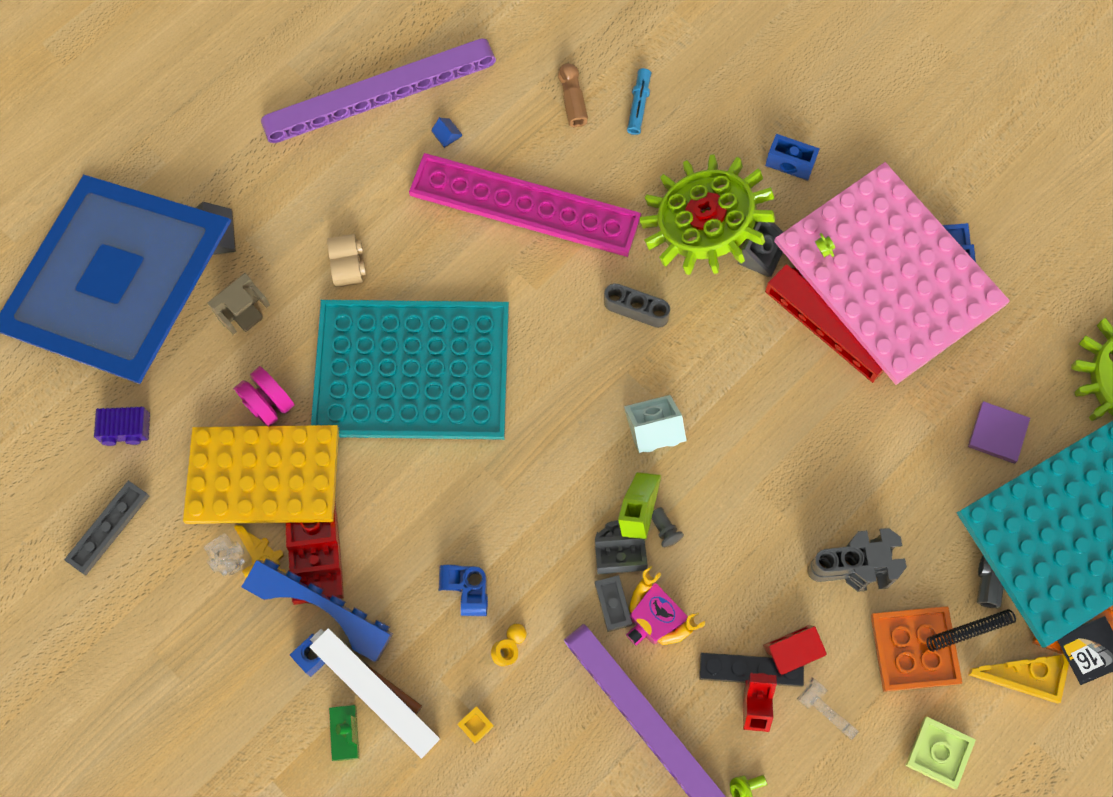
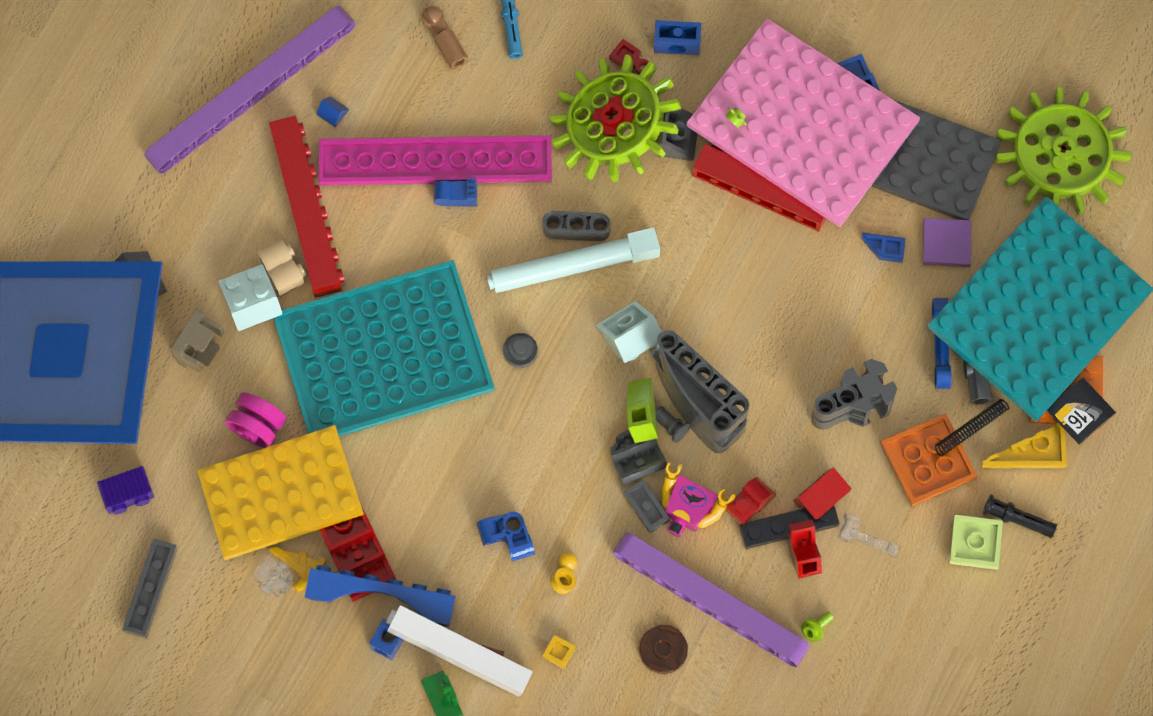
camera: 20 degrees left, 0 degrees up
(304, 279) = (250, 297): none -> light aqua brick
(388, 212) = (305, 206): none -> red brick
(533, 240) = (456, 193): none -> blue leg
(542, 408) = (520, 350): none -> dark grey plate
(582, 757) = (663, 649): none -> reddish brown tile
(688, 343) = (635, 247): none -> light aqua brick
(700, 512) = (698, 399): none -> dark grey panel
(719, 632) = (752, 498): none -> red brick
(738, 151) = (625, 48): none -> red plate
(935, 418) = (885, 247): none -> blue tile
(957, 560) = (942, 366): none -> blue piece
(984, 732) = (1008, 512): none -> black pin
(1014, 356) = (940, 166): none -> dark grey plate

